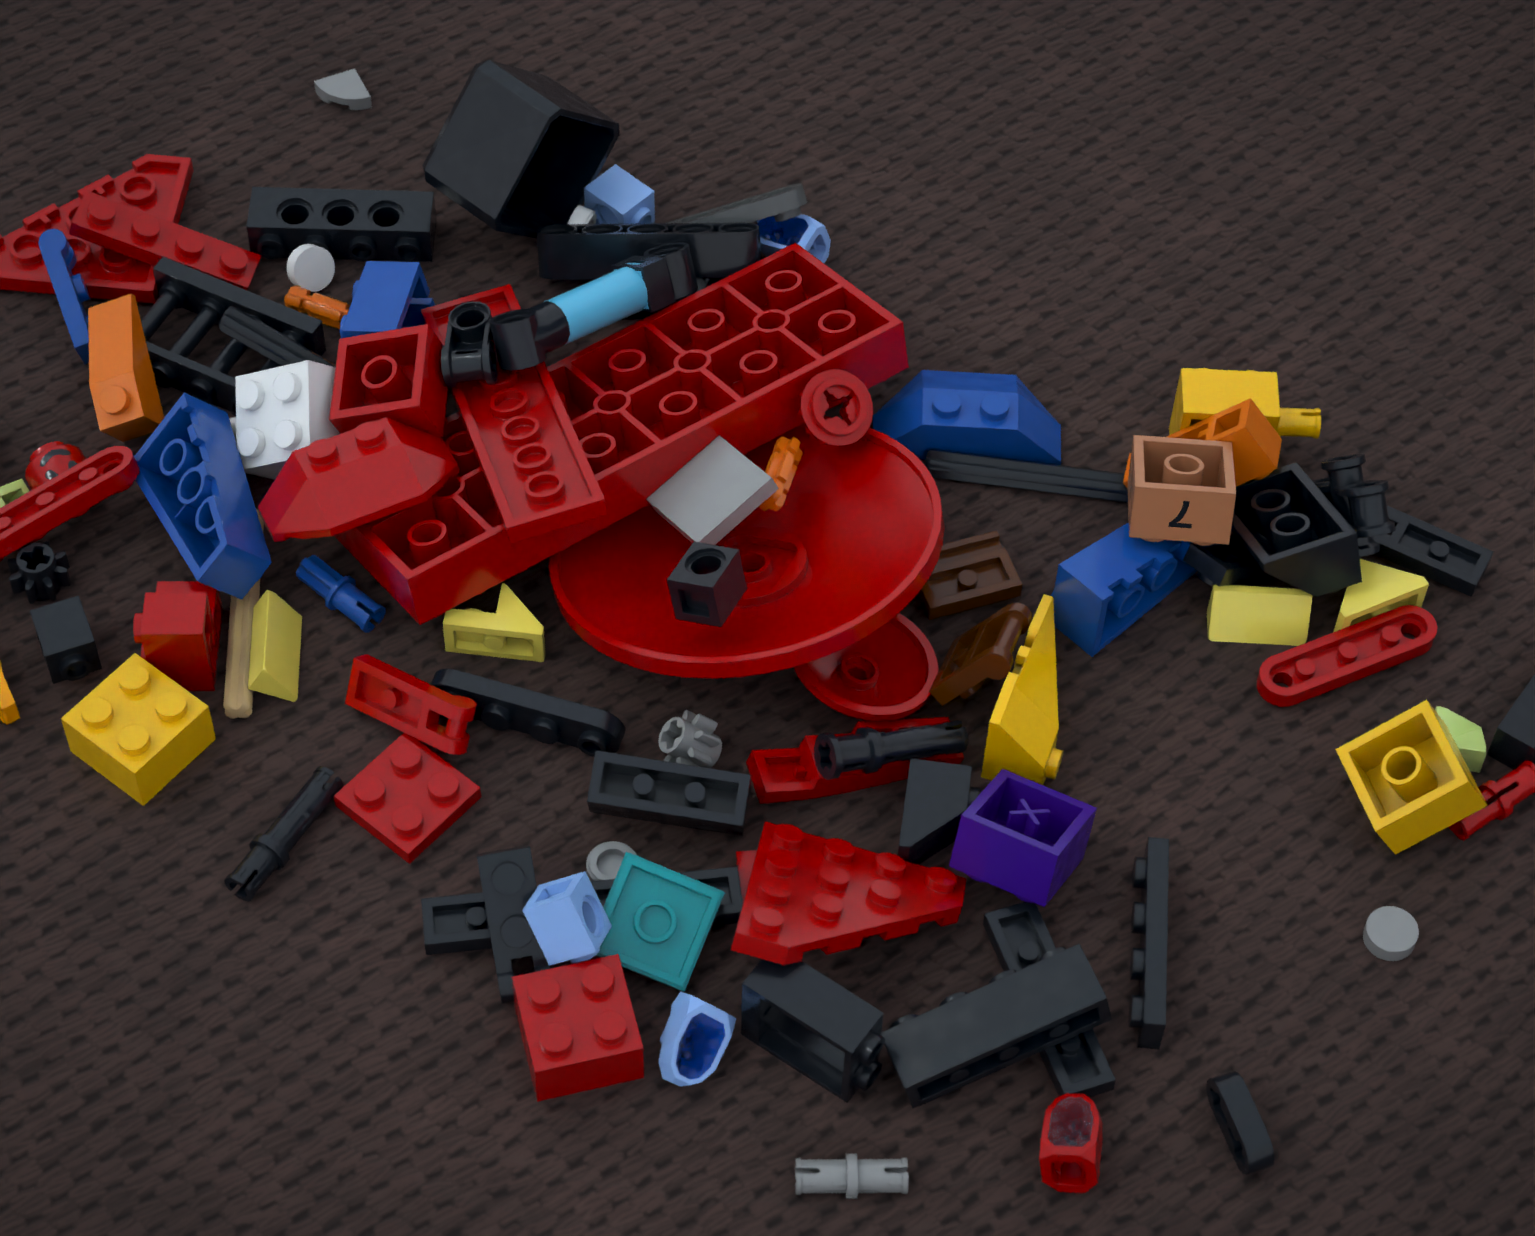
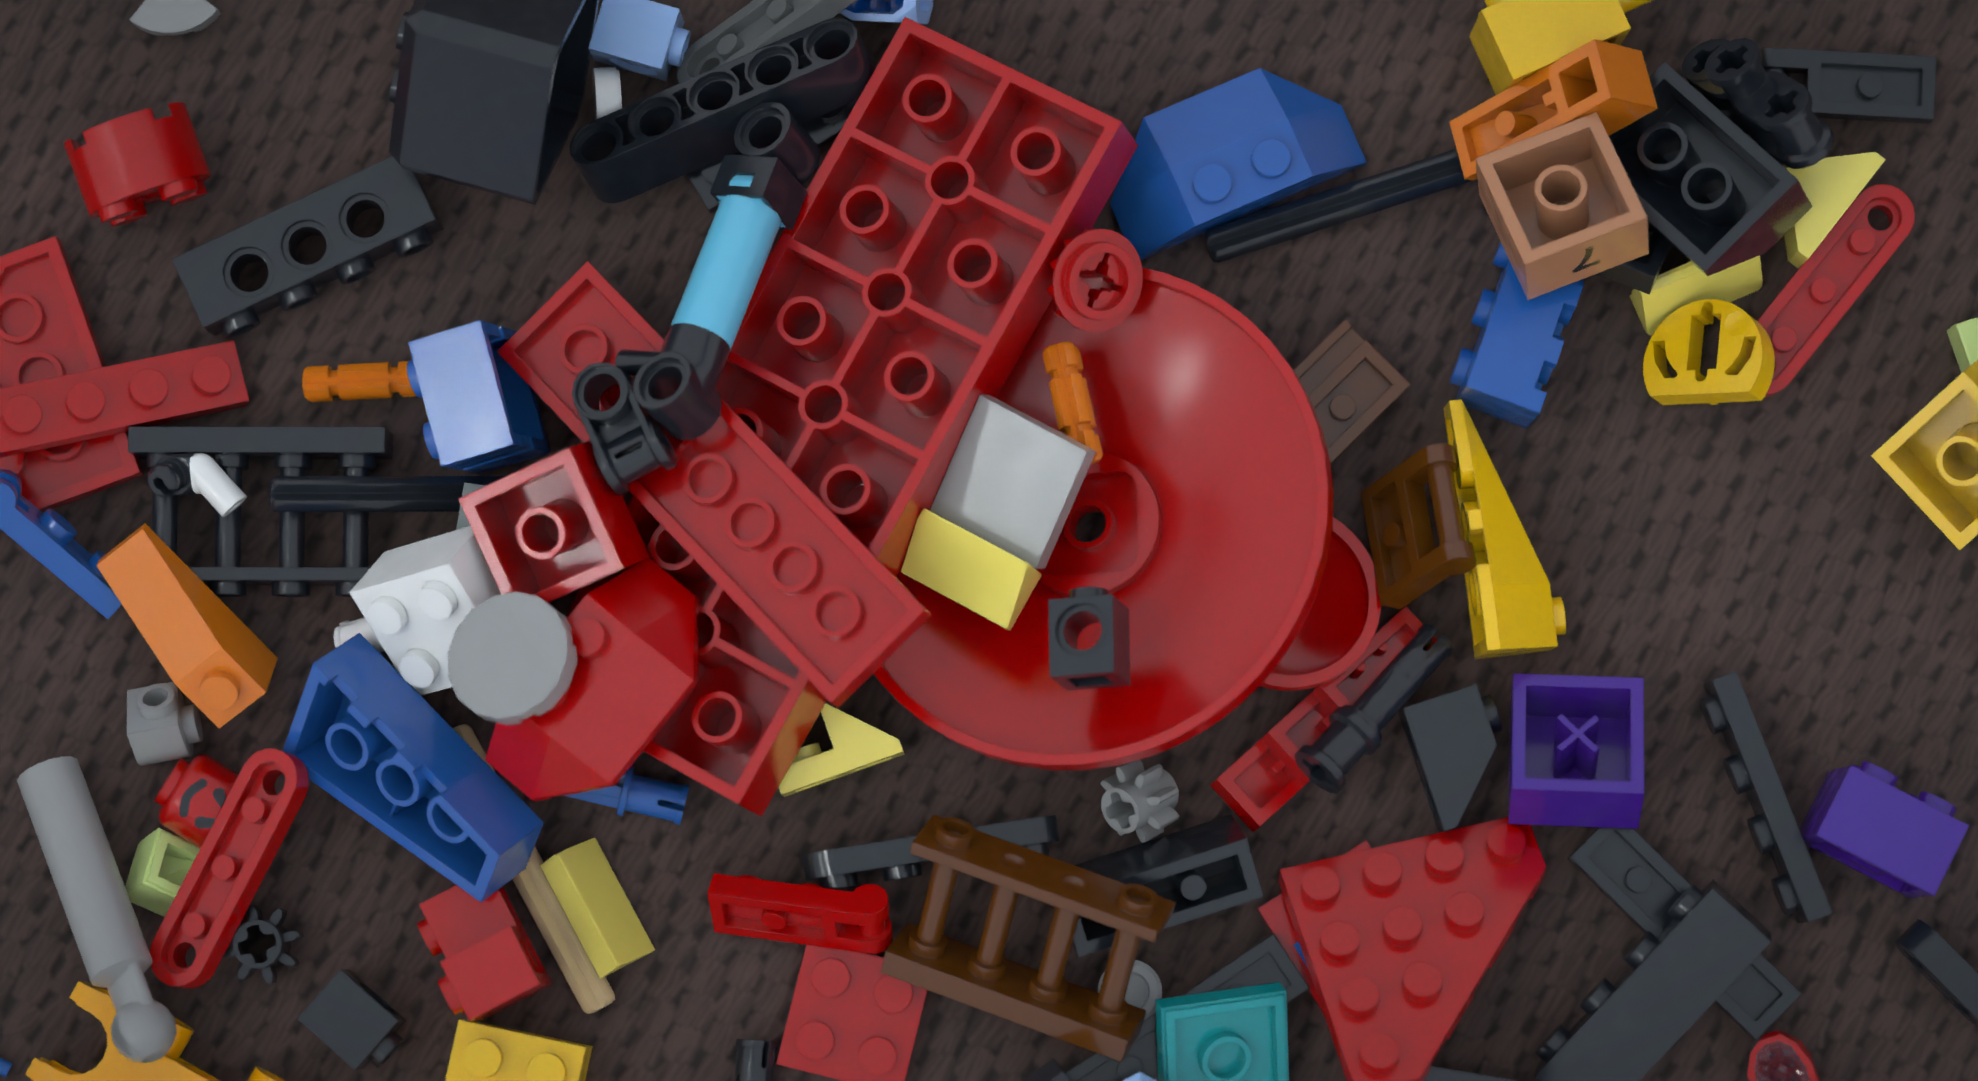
camera: 20 degrees left, 30 degrees up
(66, 421) = (161, 724): none -> light grey plate
(184, 297) = (195, 475): none -> arm
(267, 135) = (137, 163): none -> red brick
(310, 267) = (309, 333): white tile -> none
(312, 423) = (512, 658): none -> light grey tile
(514, 793) = (1009, 989): none -> reddish brown fence
(651, 532) = (969, 569): none -> light yellow slope
(1230, 986) = (1882, 830): none -> dark purple brick
(1244, 651) = (1743, 356): none -> yellow piece

